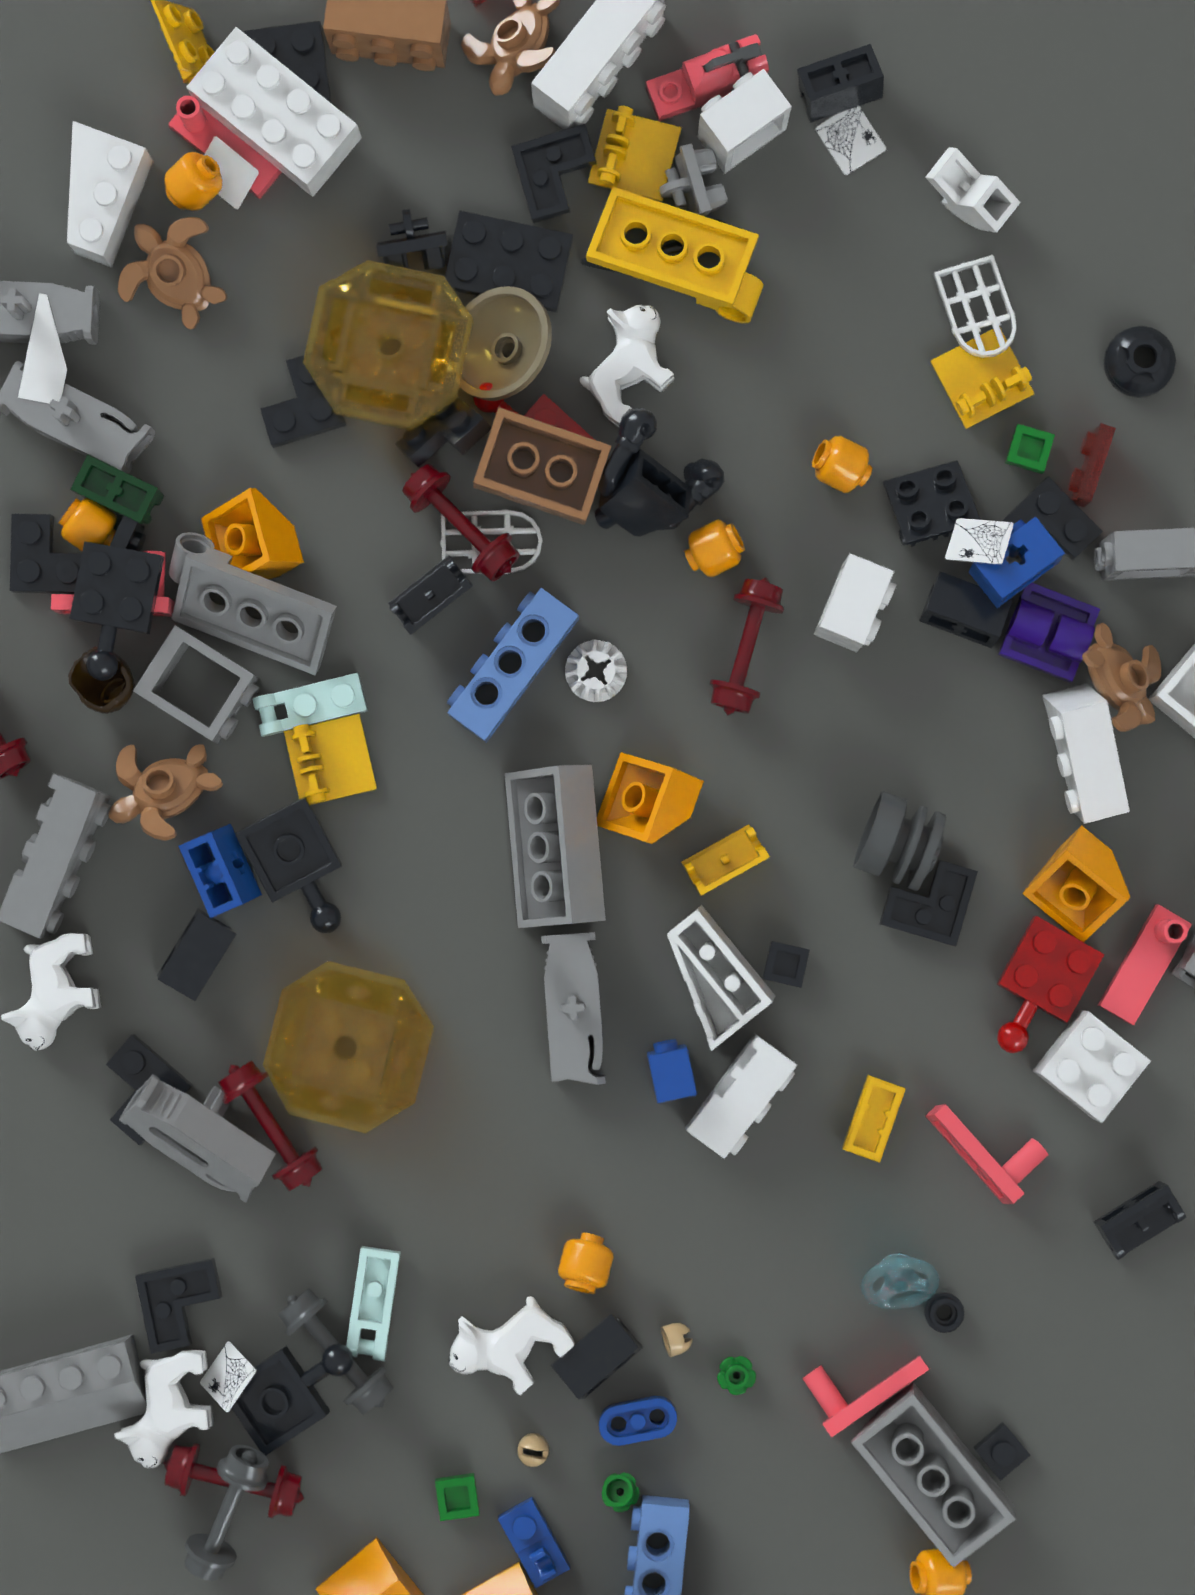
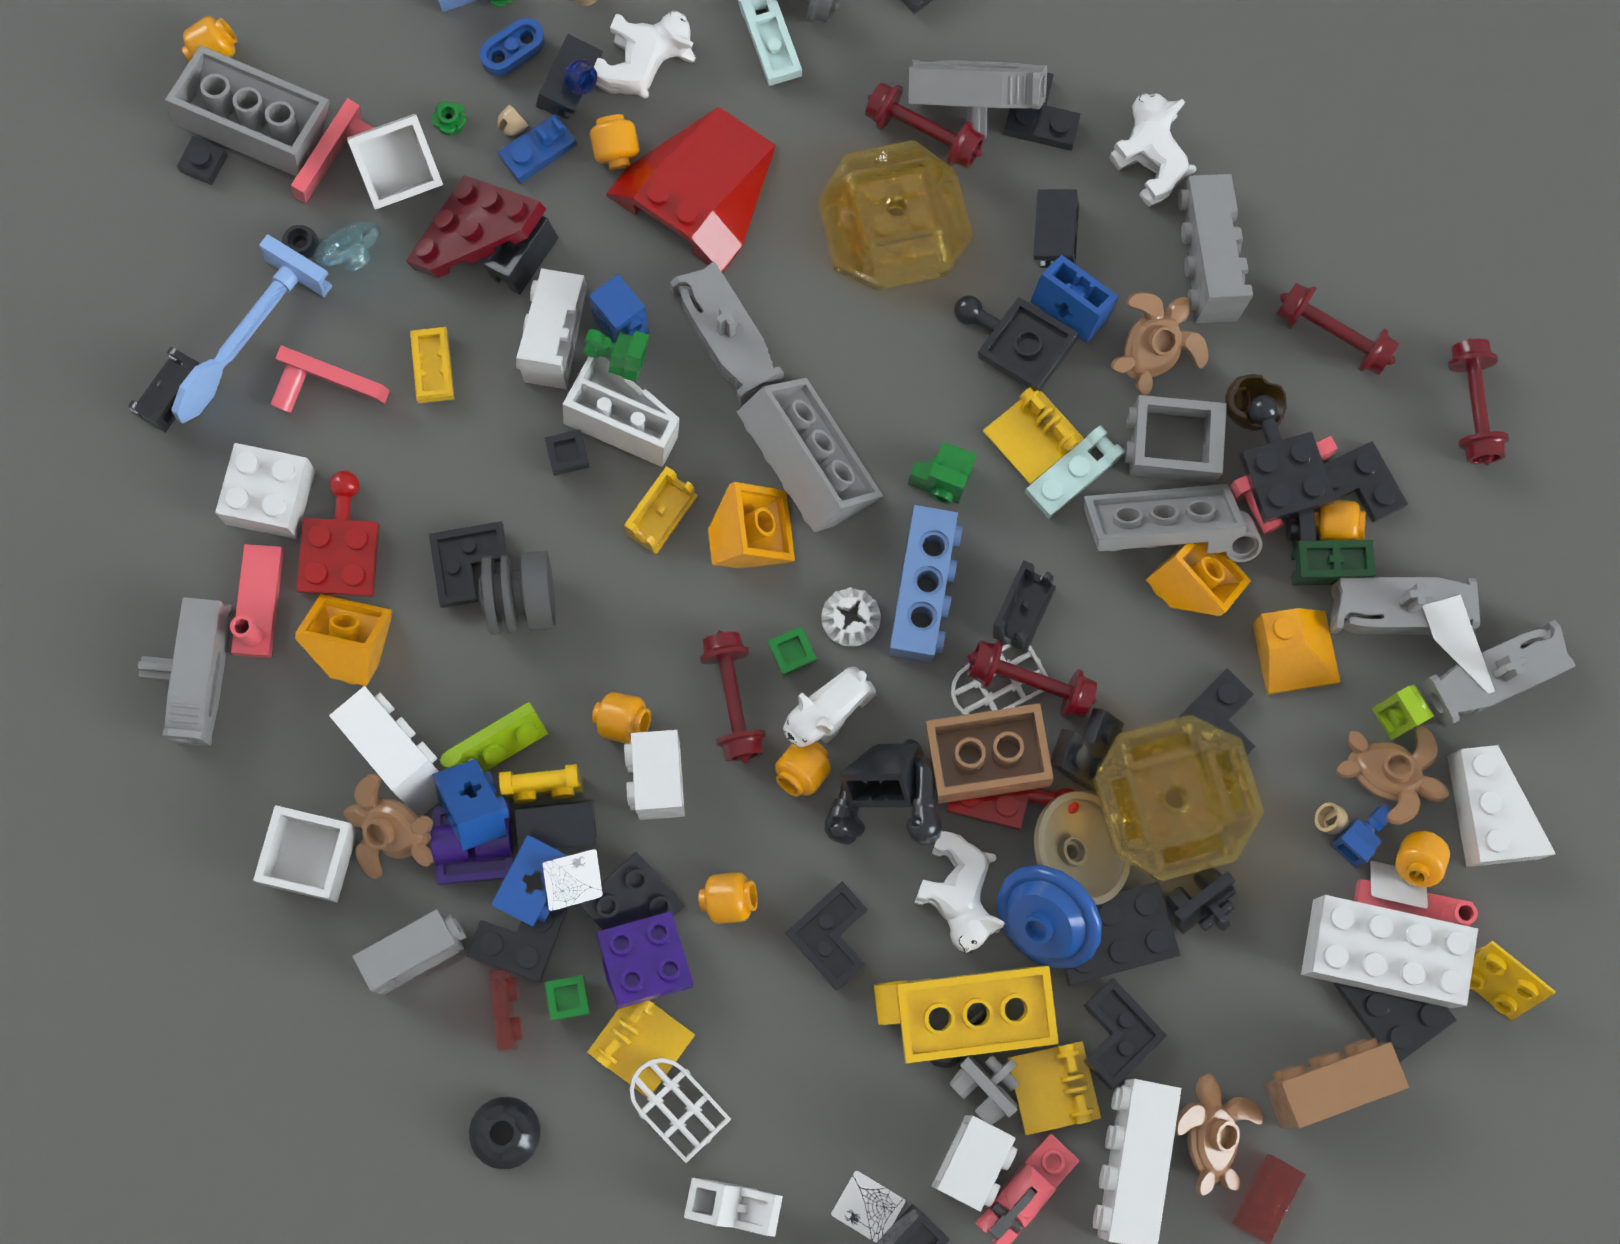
camera: 145 degrees right, 10 degrees down
(130, 320) = (1402, 711): none -> lime plate
(197, 430) = (1295, 650): none -> light orange slope
(240, 228) = (1360, 840): none -> blue piece
(250, 267) = (1329, 814): none -> tan hinge
(435, 760) = (945, 474): none -> green brick
(521, 1179) = (701, 184): none -> red wedge
(563, 296) = (1049, 916): none -> blue piece
(590, 1341) = (580, 76): none -> clear blue plate
(664, 1298) = (537, 148): none -> blue plate
(665, 587) = (828, 708): none -> white animal
(668, 663) = (792, 651): none -> green plate
(687, 1021) = (626, 354): none -> green piece
(734, 1195) = (521, 260): none -> black hinge
(768, 1239) = (473, 224): none -> dark red plate
(774, 392) = (819, 935): none -> black plate
(816, 1343) = (394, 161): none -> white piece
(858, 678) = (620, 716): none -> light orange head
(946, 442) = (644, 960): none -> dark purple plate
(963, 651) = (528, 786): none -> yellow plate
(967, 1282) = (204, 379): none -> light blue piece
(989, 712) = (498, 740): none -> lime plate
(1043, 639) = (470, 804): none -> blue brick

